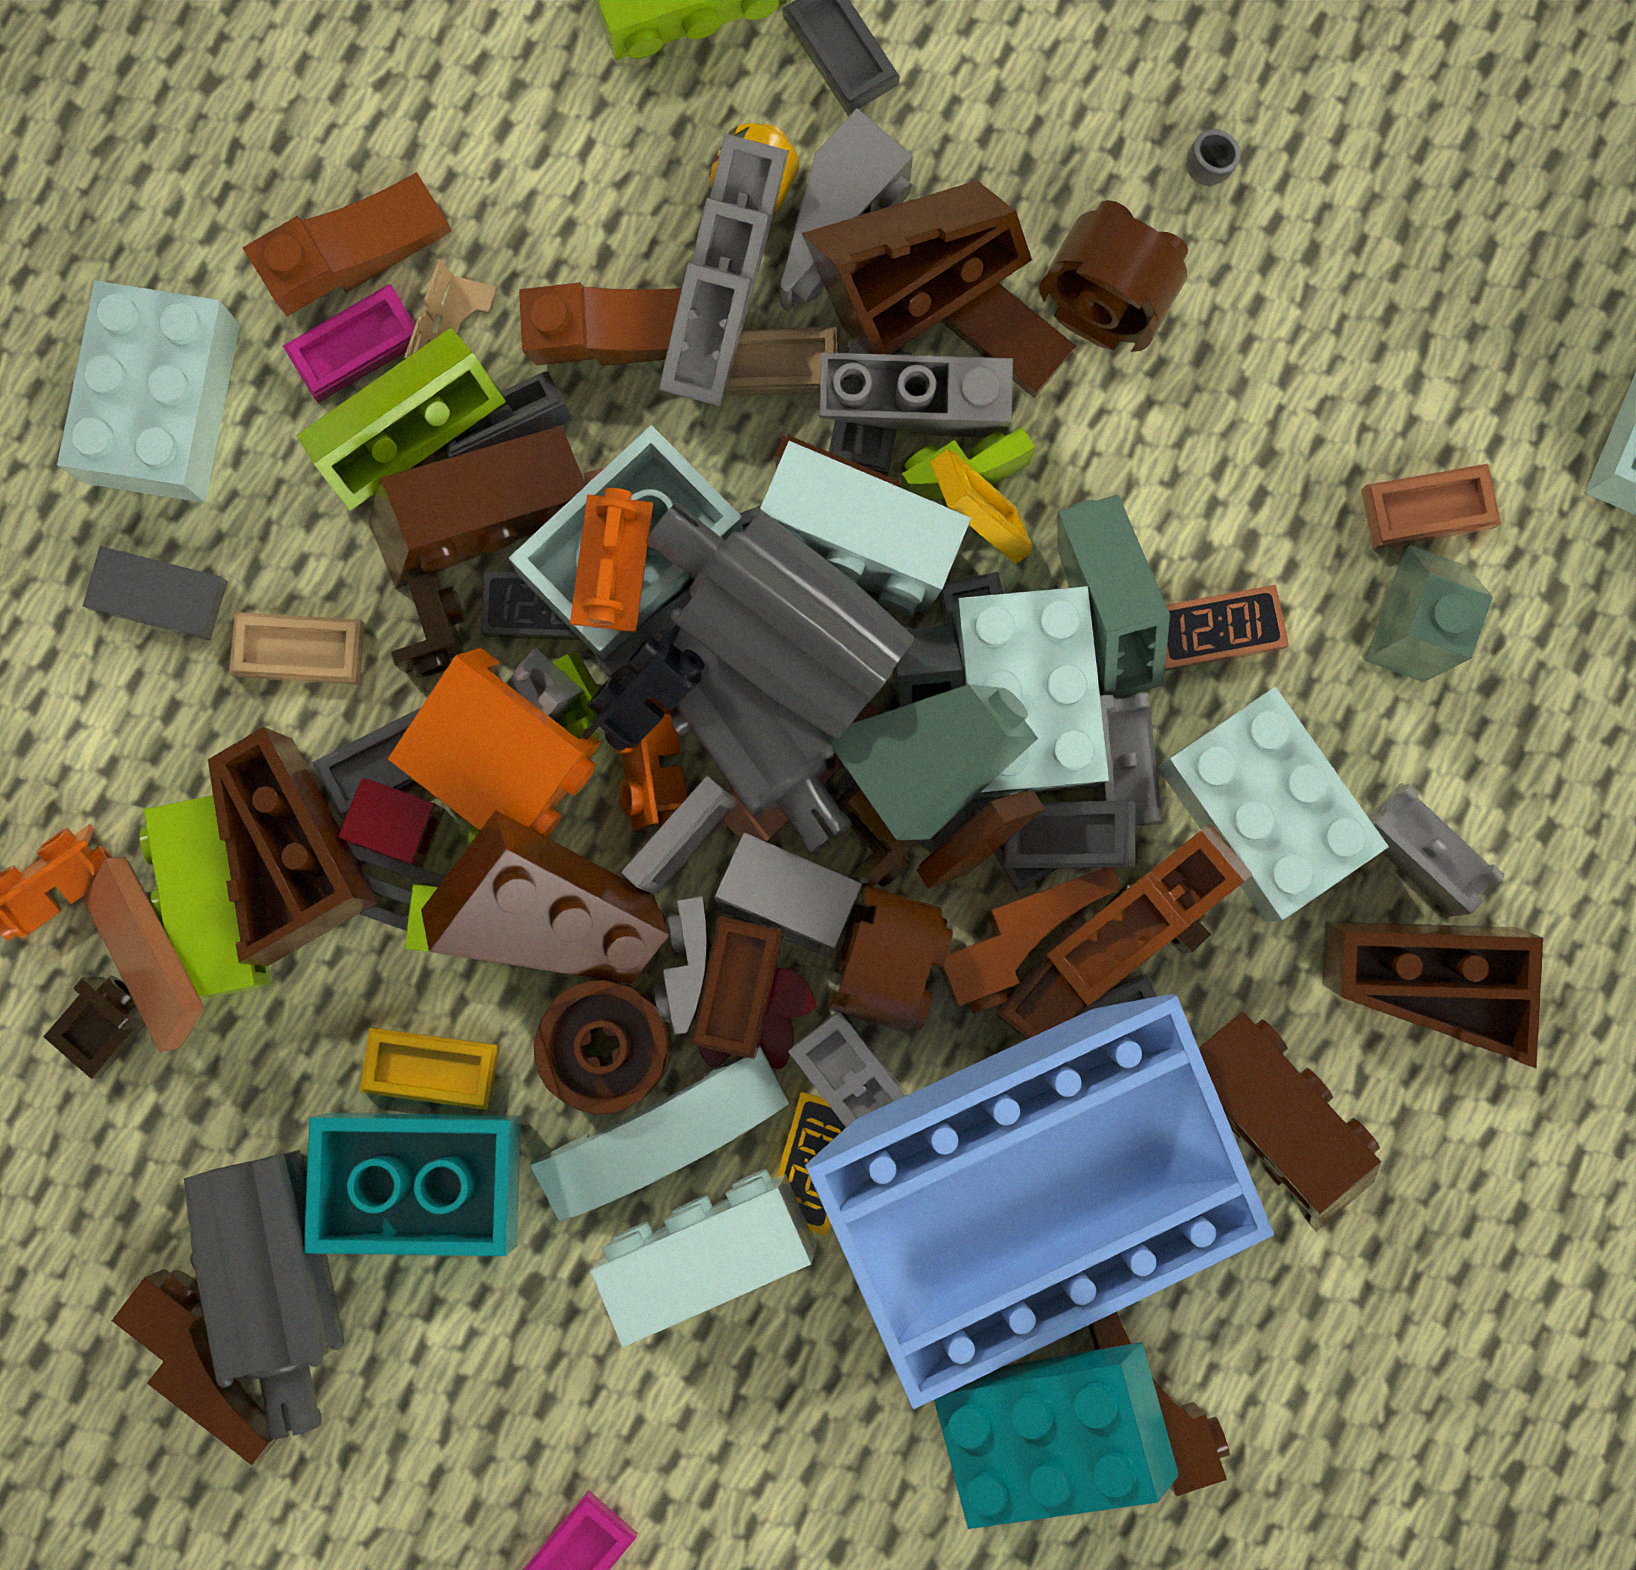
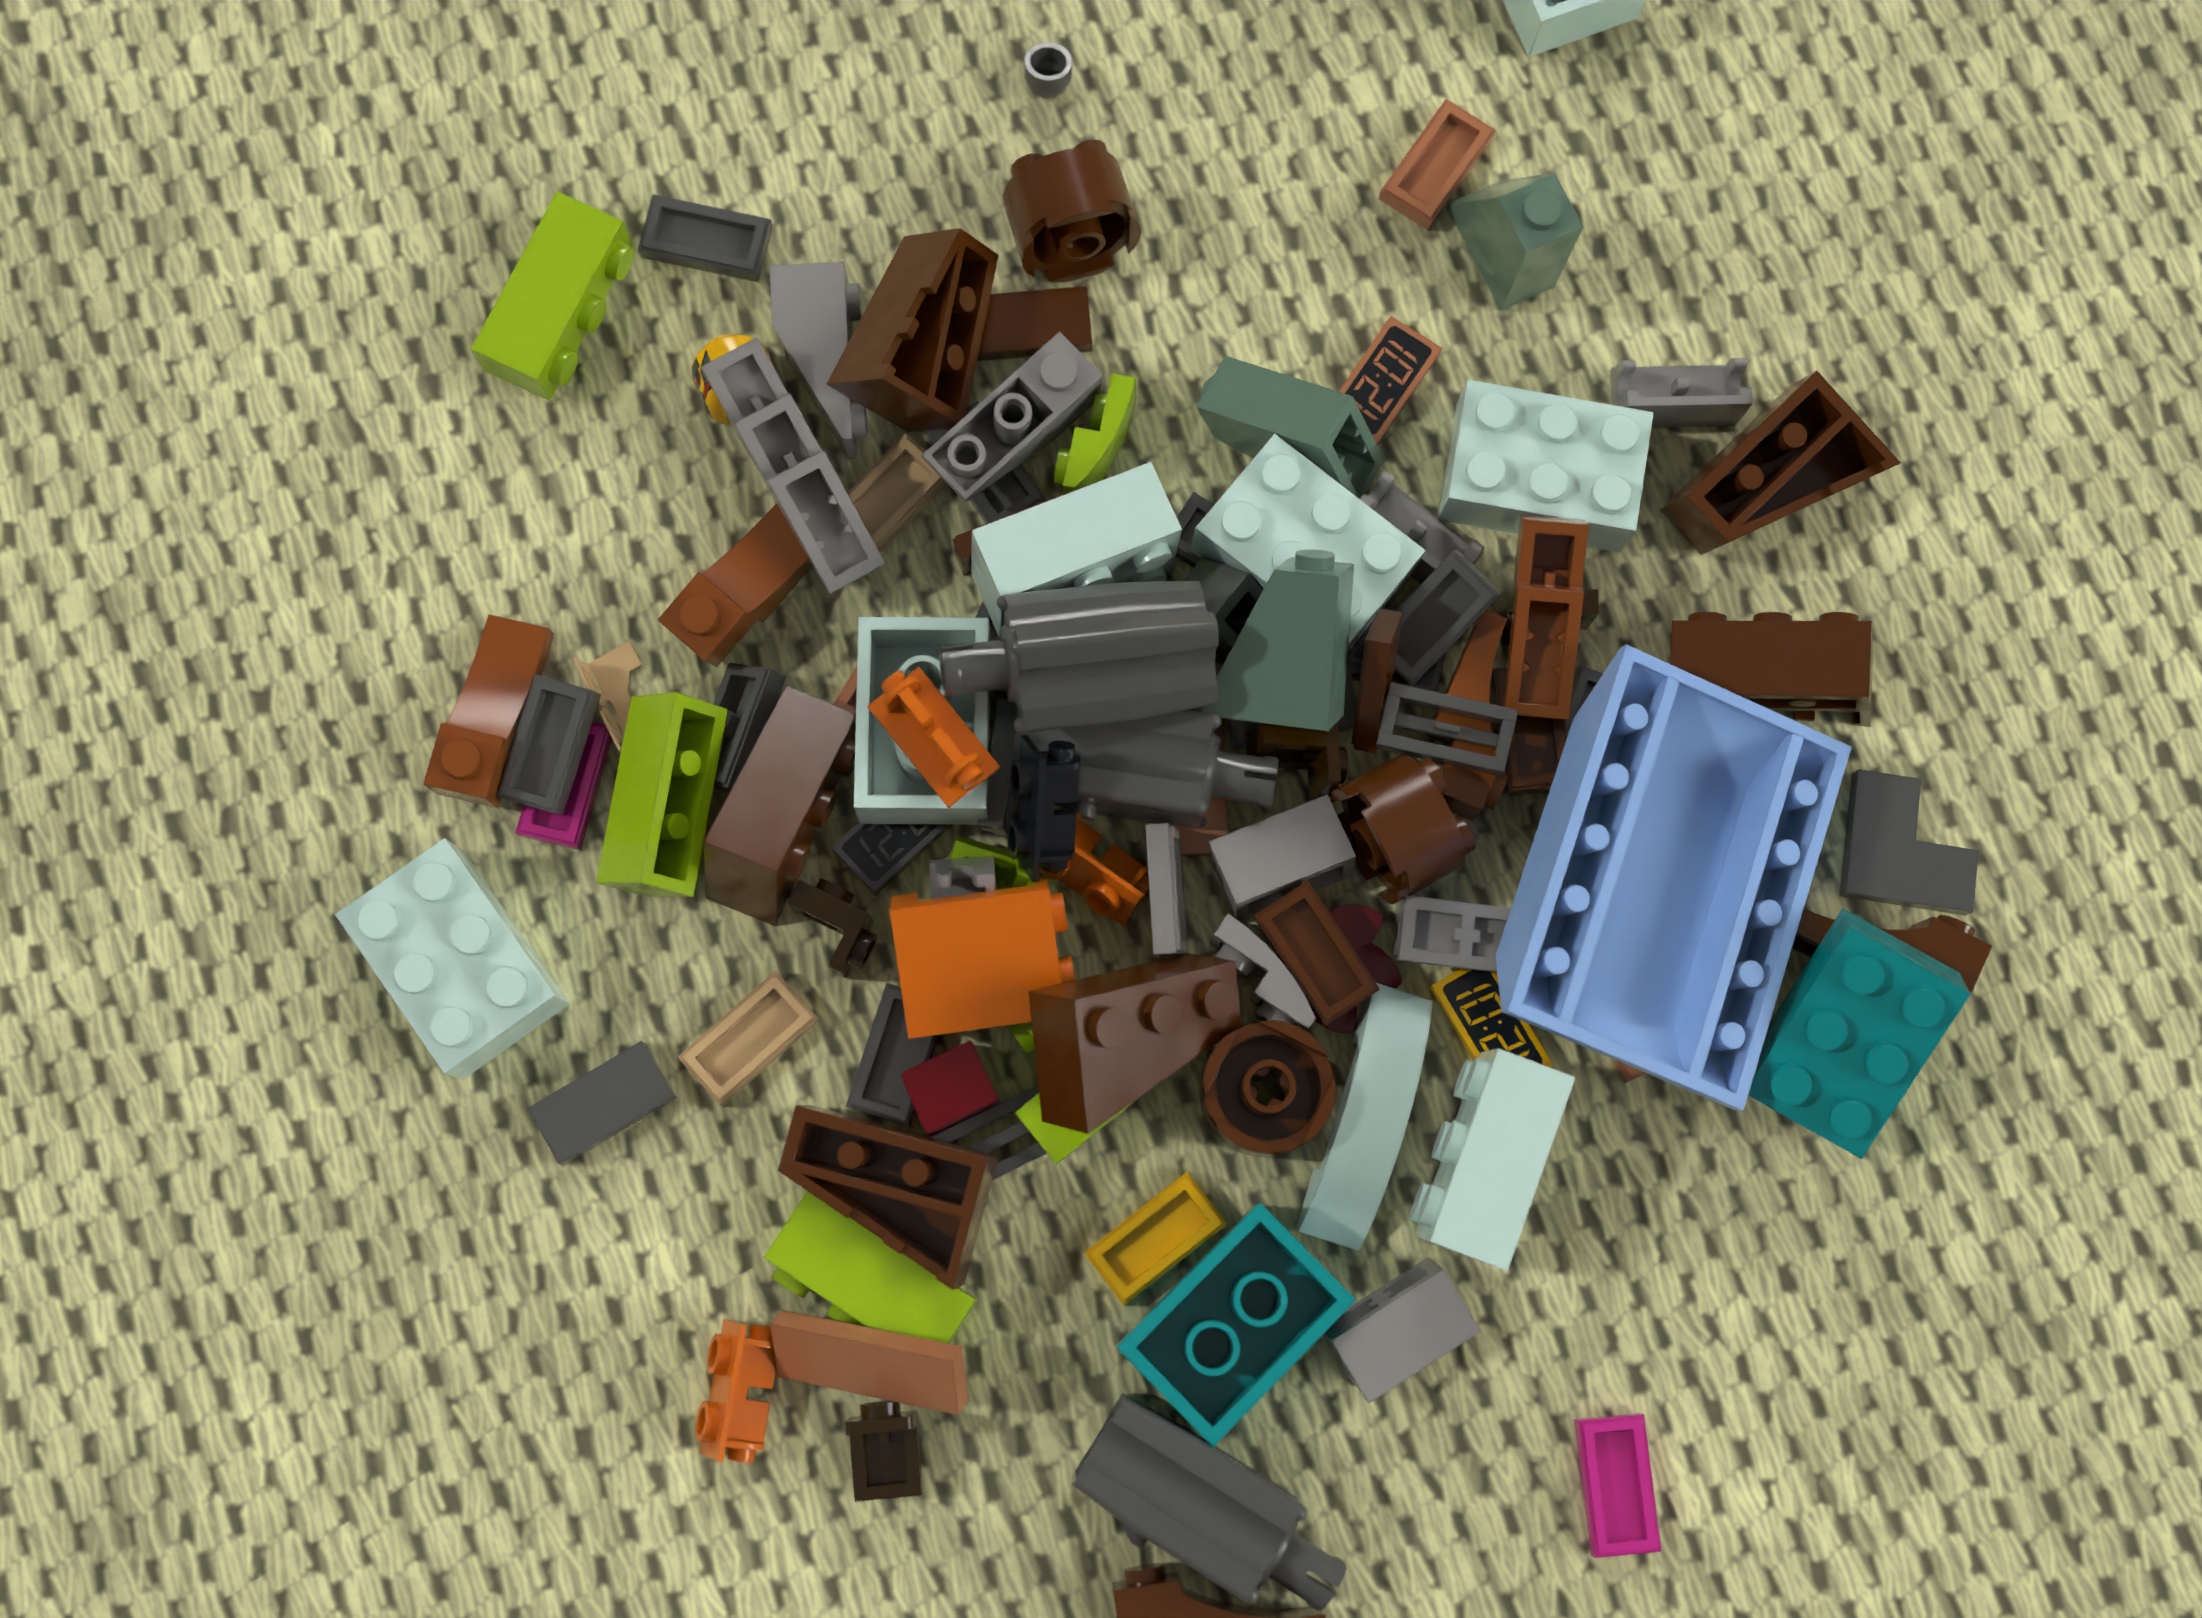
camera: 45 degrees left, 5 degrees down
(360, 305) = (548, 744): none -> dark grey tile
(526, 1305) = (1400, 1329): none -> light grey hinge
(989, 510) = (1135, 450): yellow tile -> none
(1020, 972) = (1454, 705): none -> dark grey tile
(1223, 1337) = (1885, 859): none -> dark grey tile

